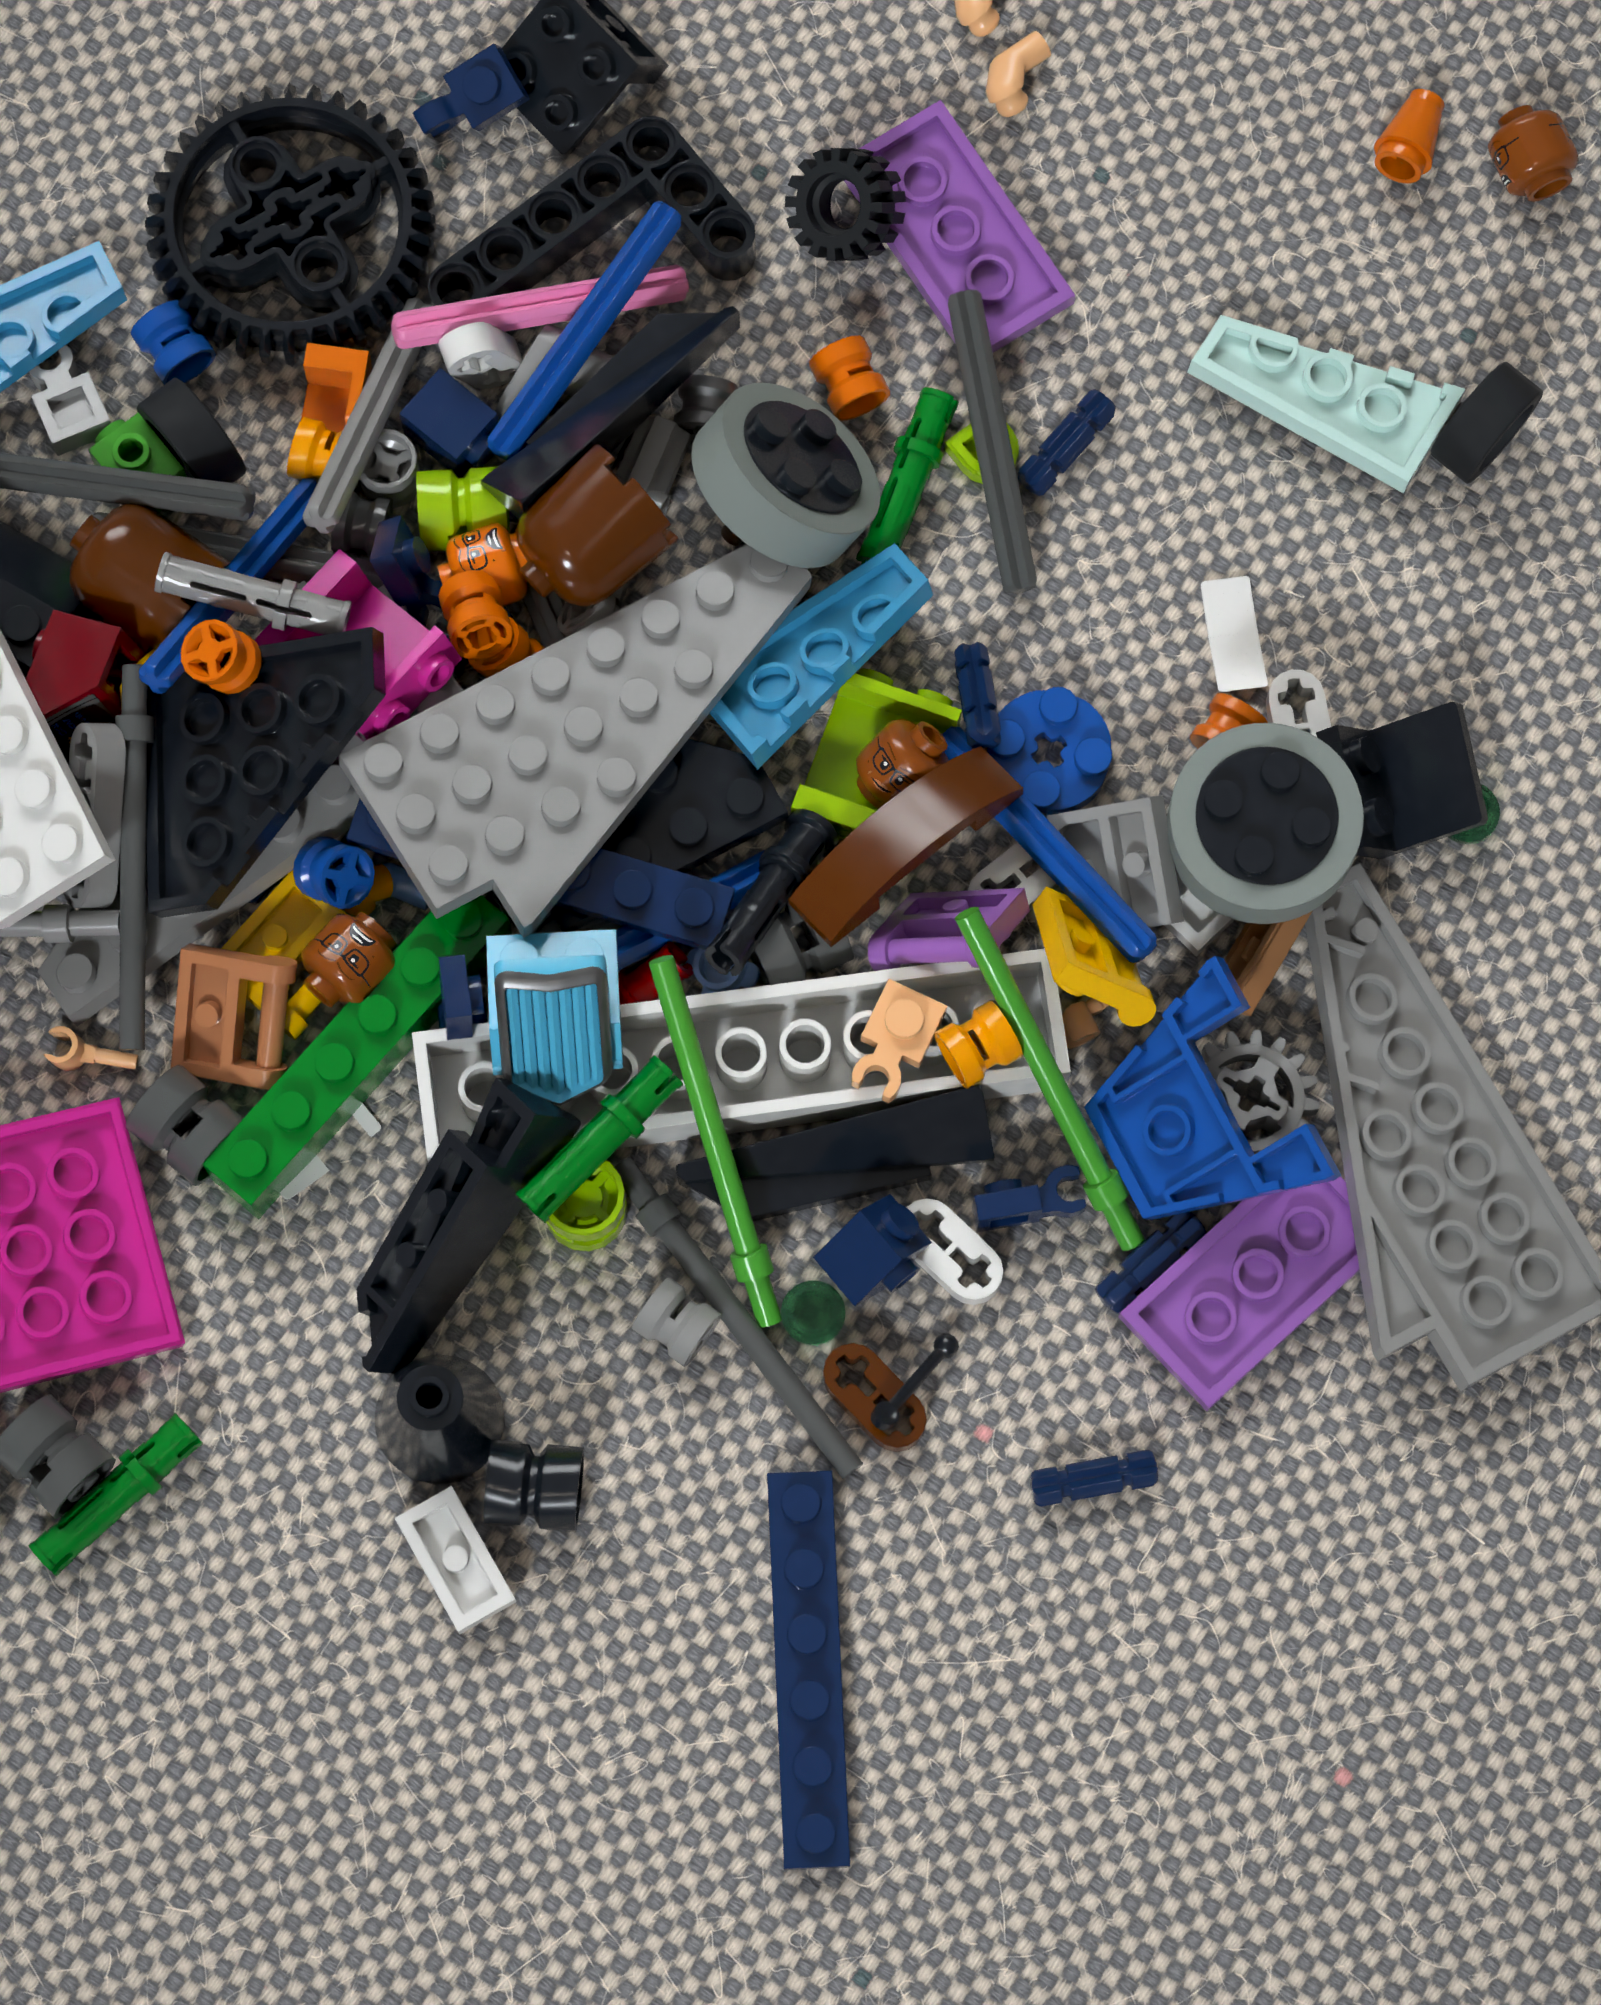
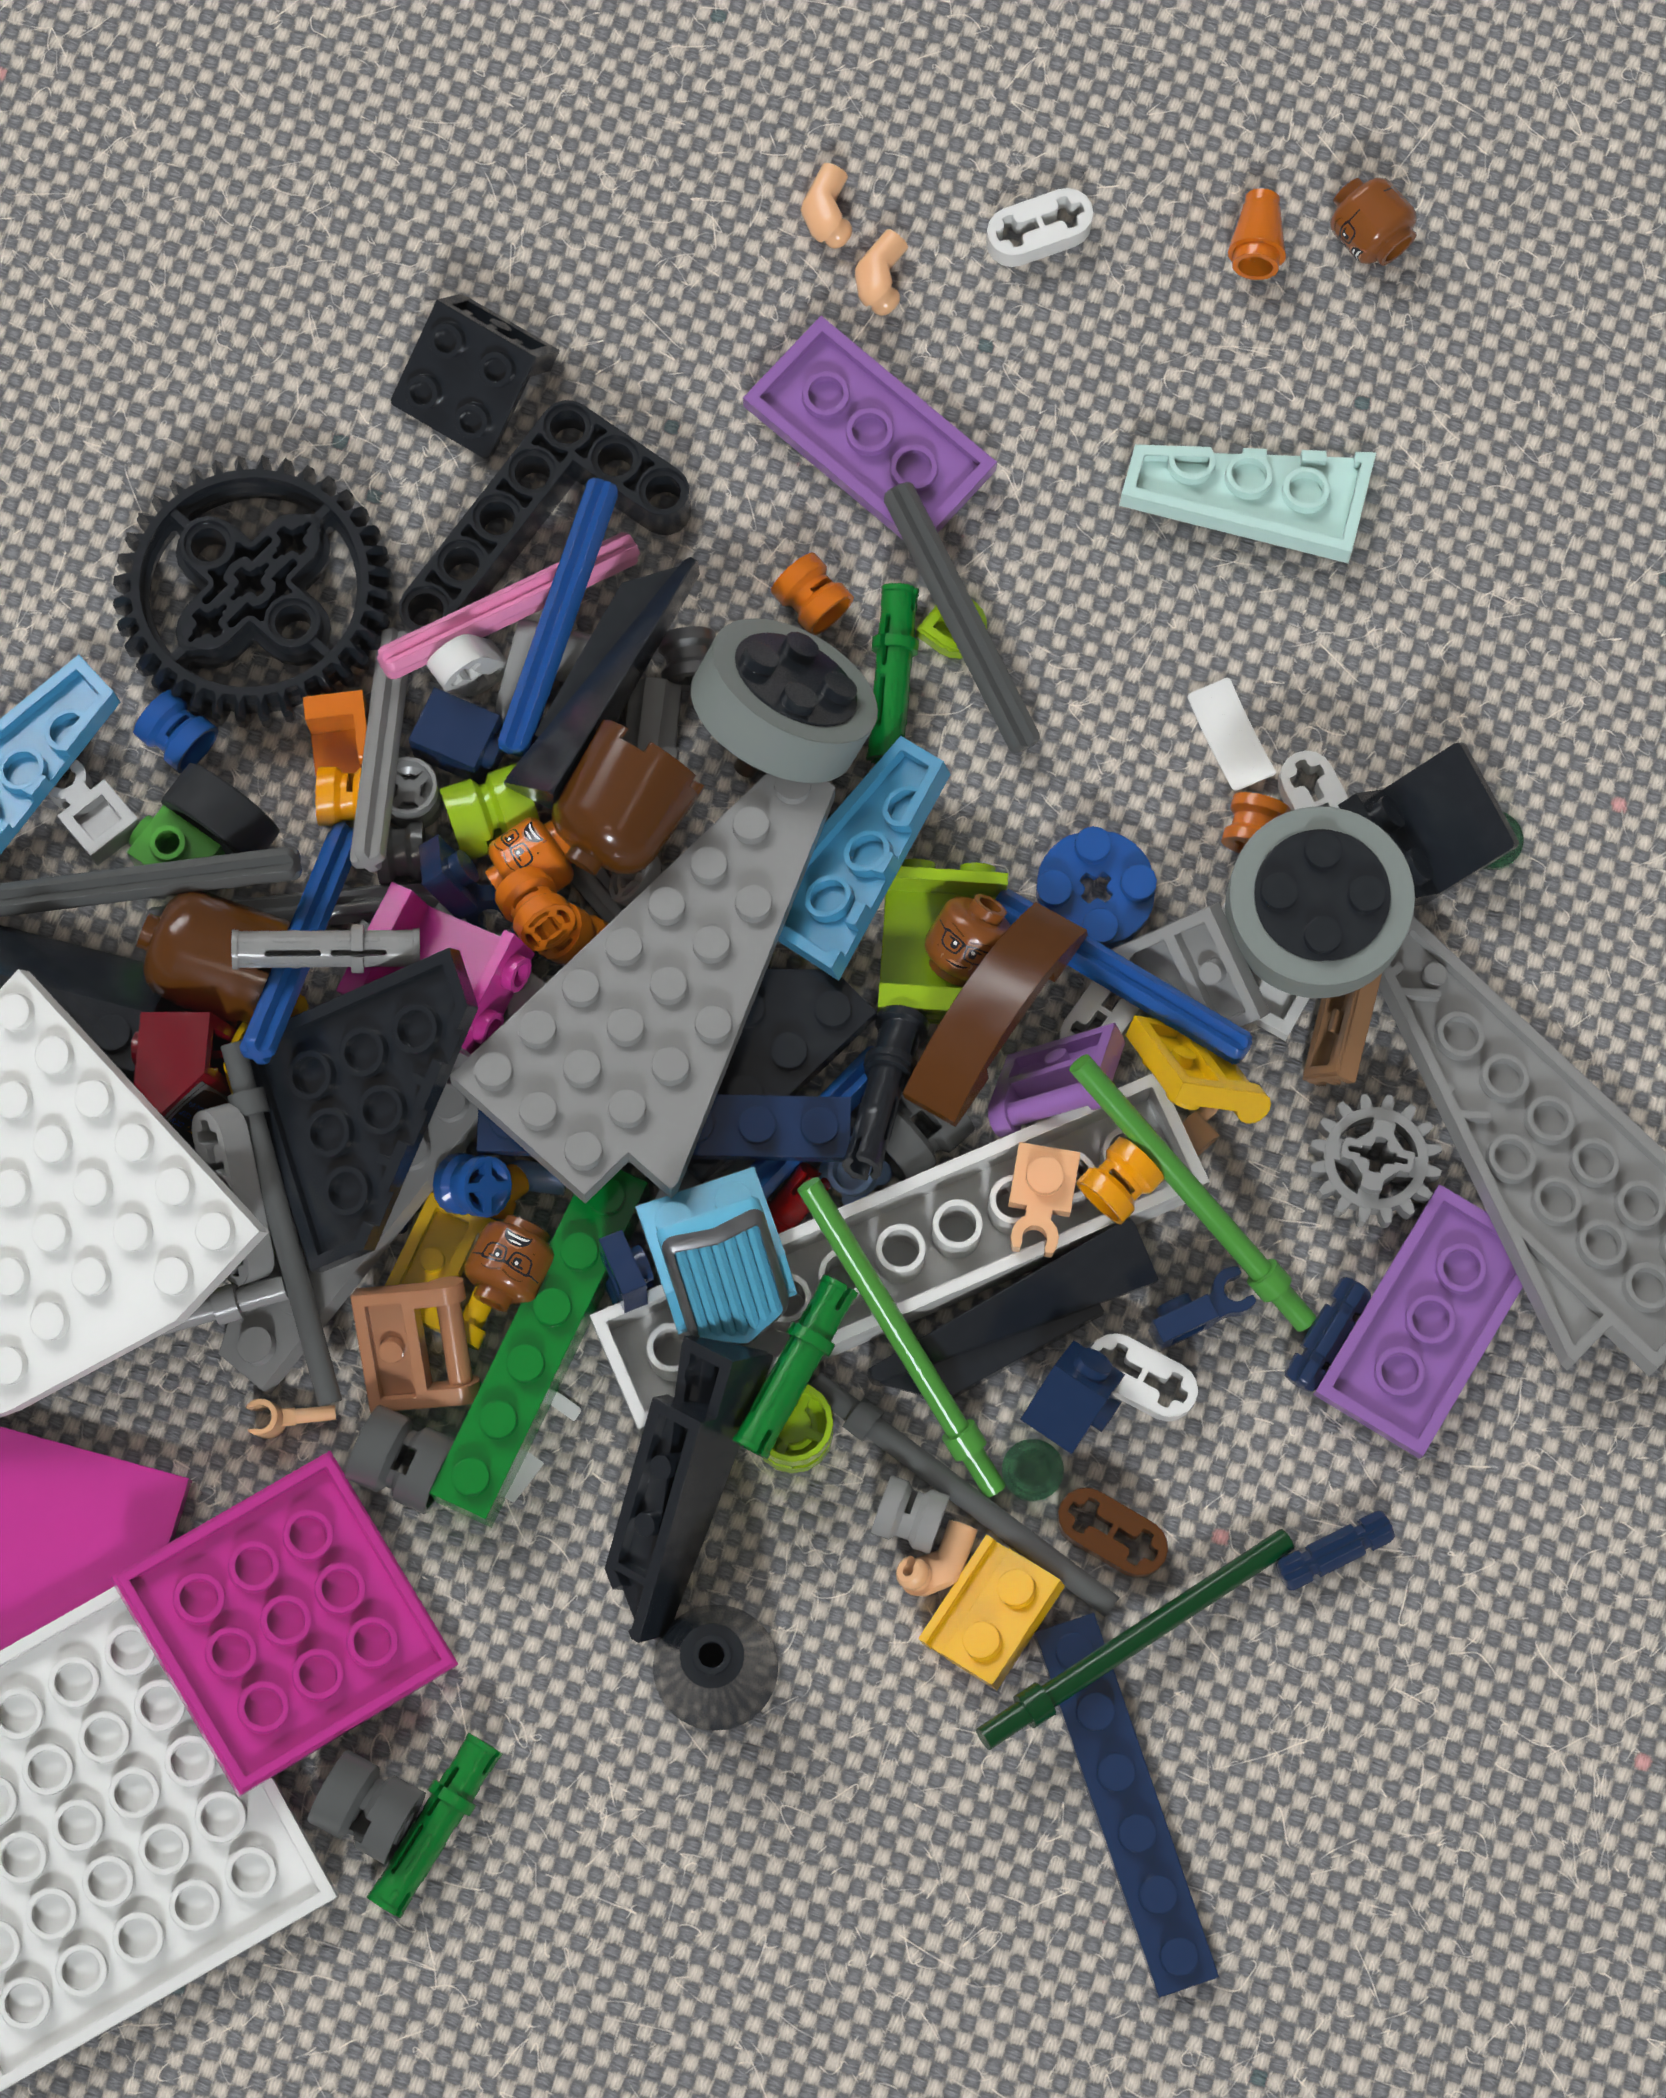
camera: 15 degrees left, 0 degrees up
(206, 648) = (298, 1008): orange wheel -> none
(455, 1560) = (770, 1796): white plate -> none
(480, 91) = (394, 420): dark blue plate -> none
(533, 1485) = (824, 1705): black wheel -> none
(691, 1384) = (940, 1568): none -> light nougat arm
(729, 1441) = (991, 1612): none -> yellow plate
(745, 1541) = (1038, 1702): none -> dark green bar
(814, 204) = (731, 439): black tyre -> none
(886, 1413) = (1131, 1546): black hinge -> none
(977, 695) = (1017, 855): dark blue axle -> none
(1066, 442) = (1027, 599): dark blue axle -> none
(1173, 1126) = (1317, 1206): blue wing -> none
(1190, 69) = (1041, 239): none -> white beam
(1486, 422) = (1407, 478): black tyre -> none

